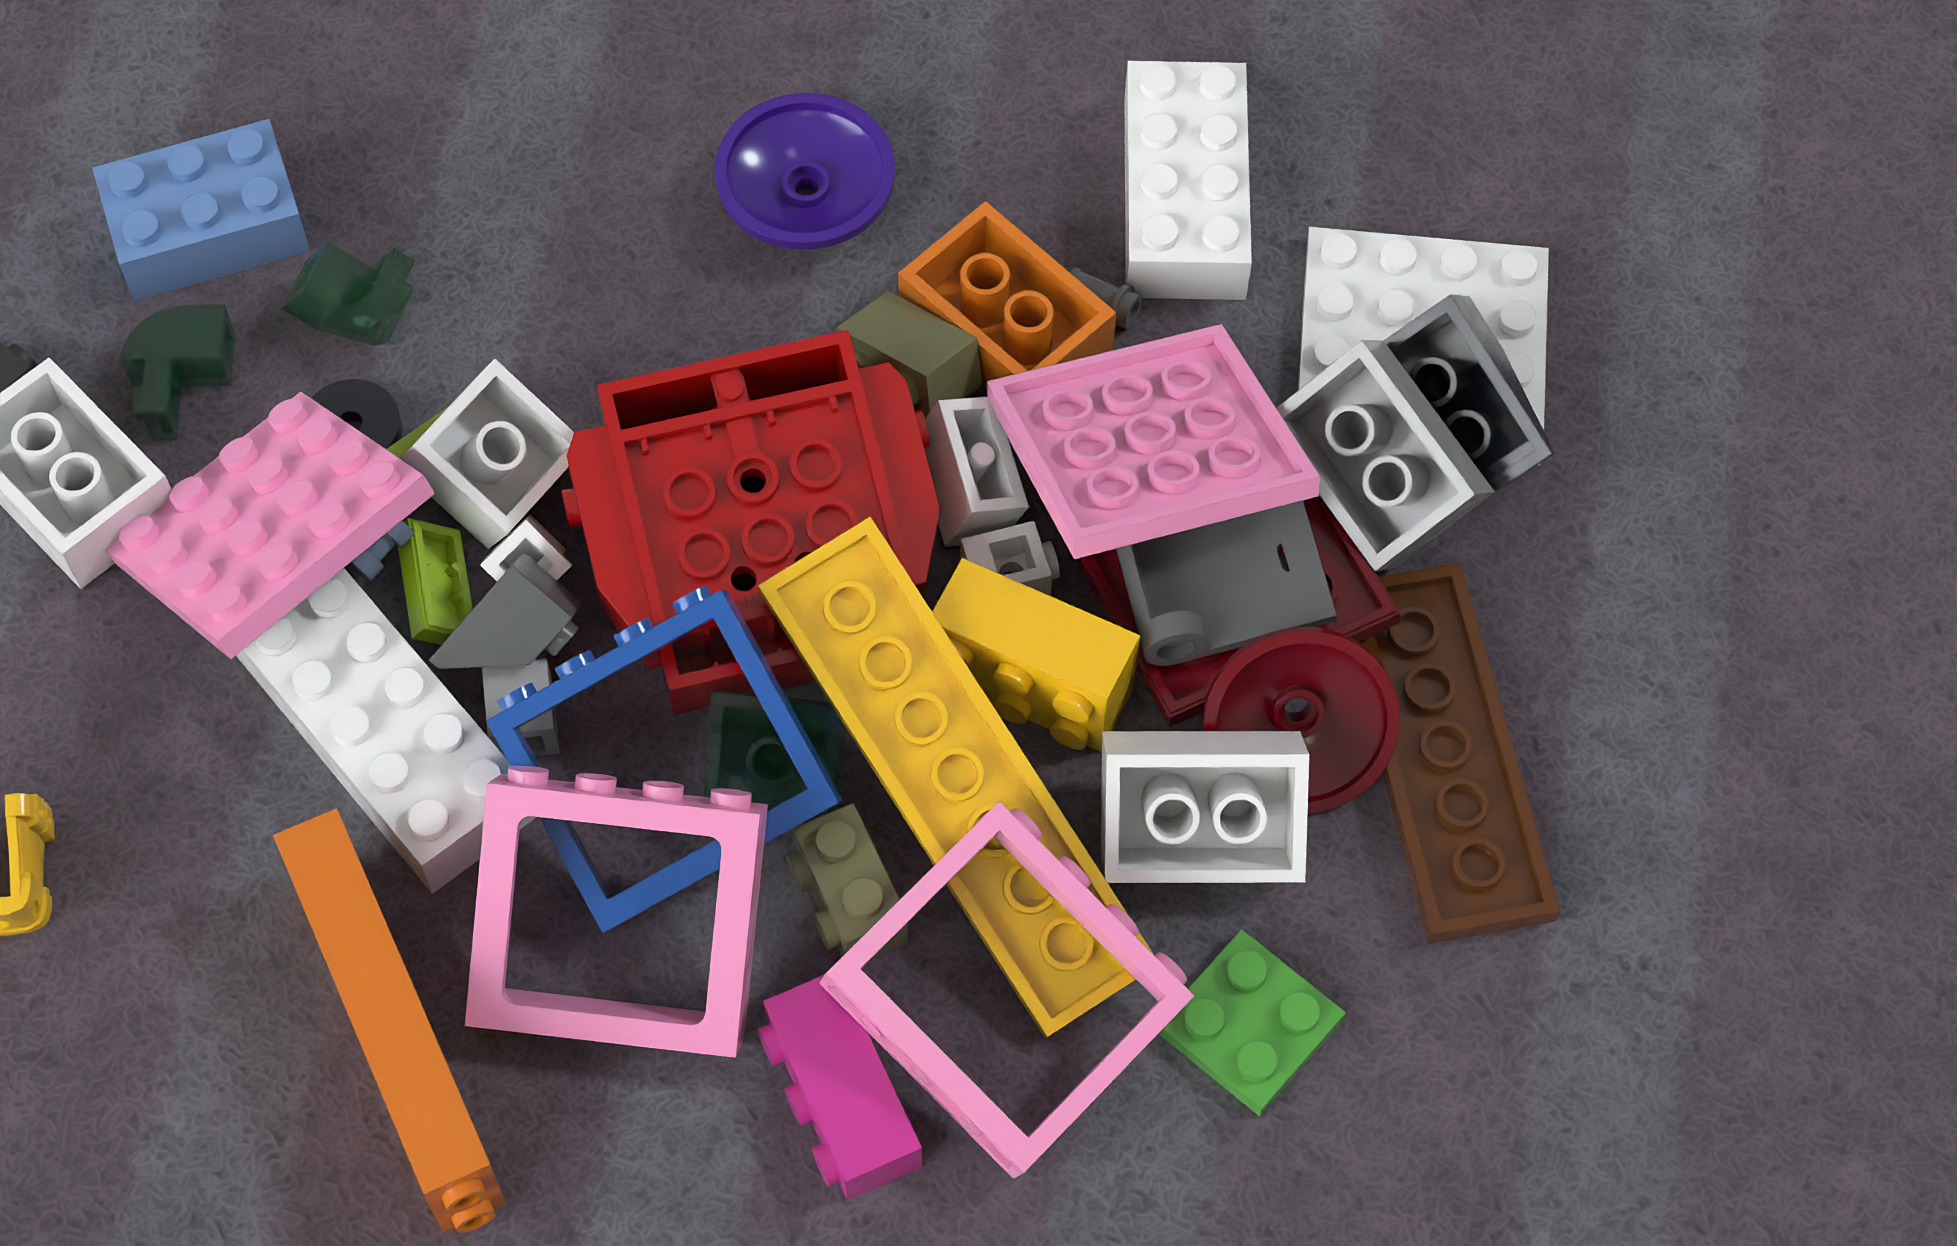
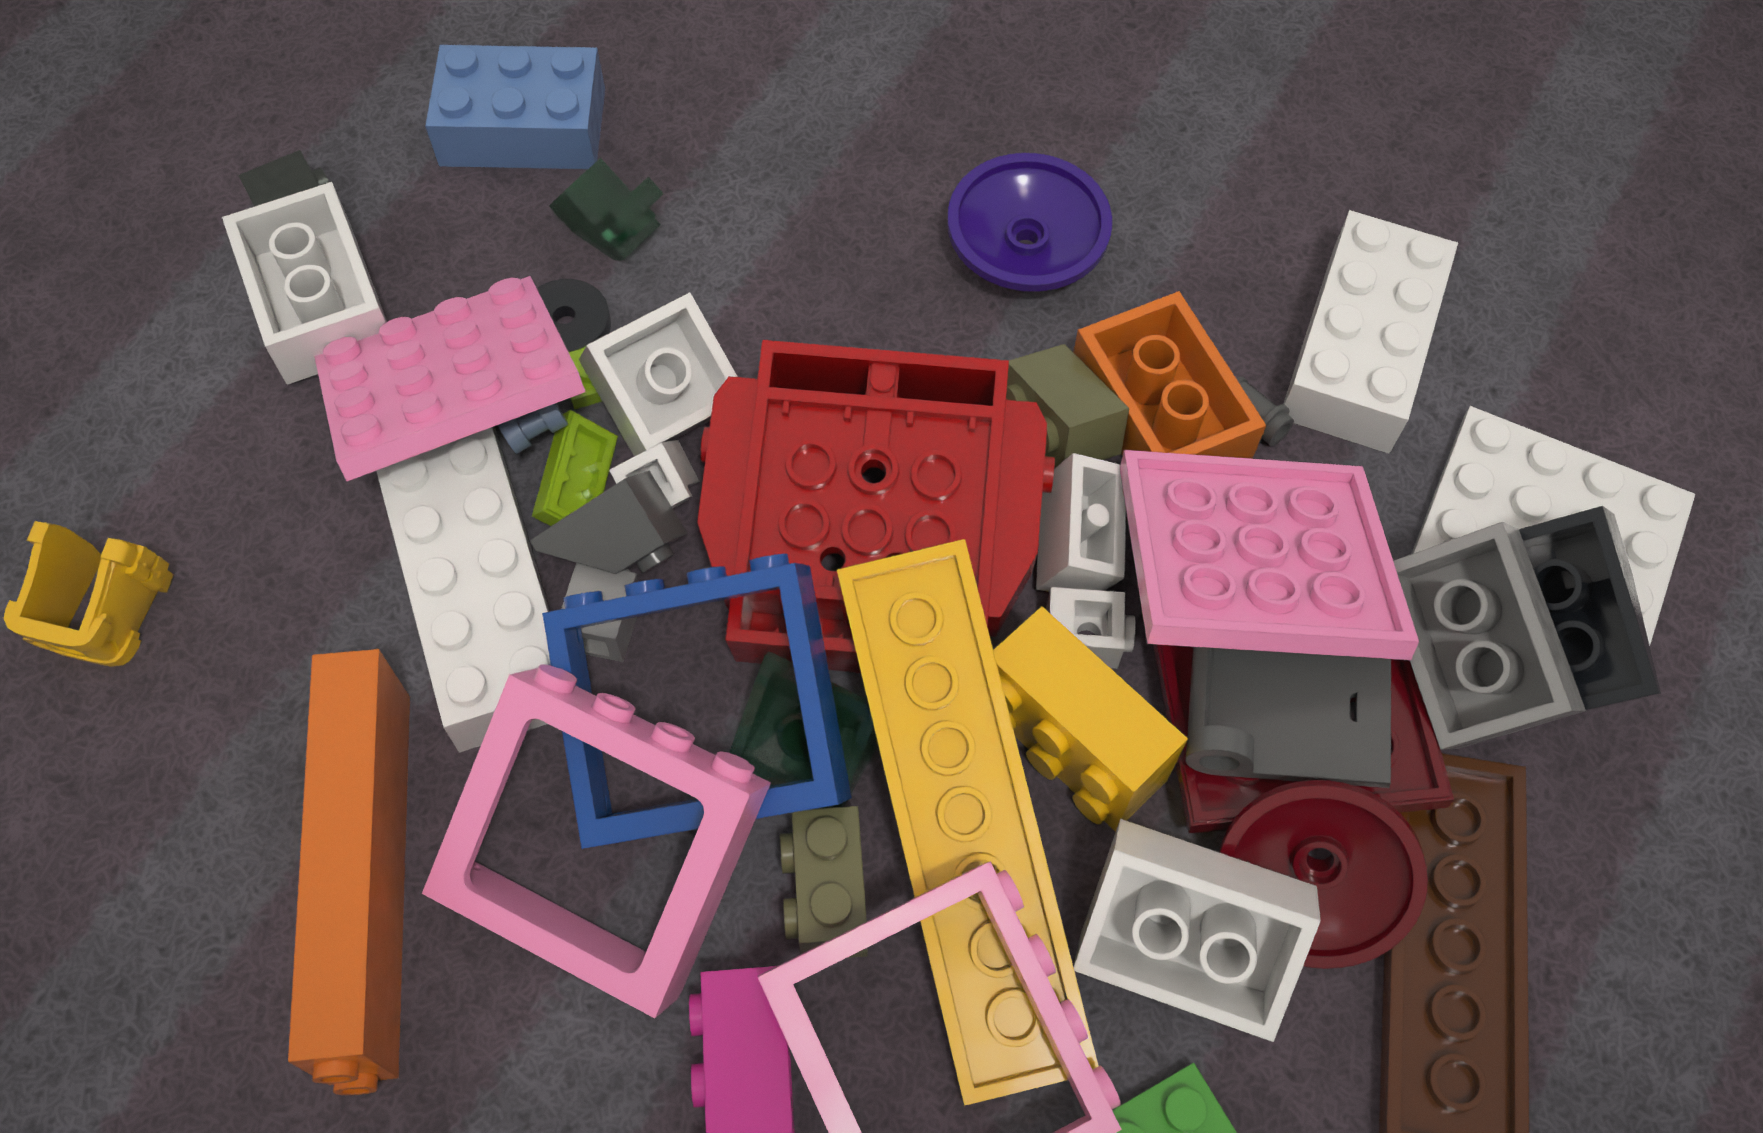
camera: 20 degrees right, 0 degrees up
(176, 351) = (443, 213): clear green brick -> none

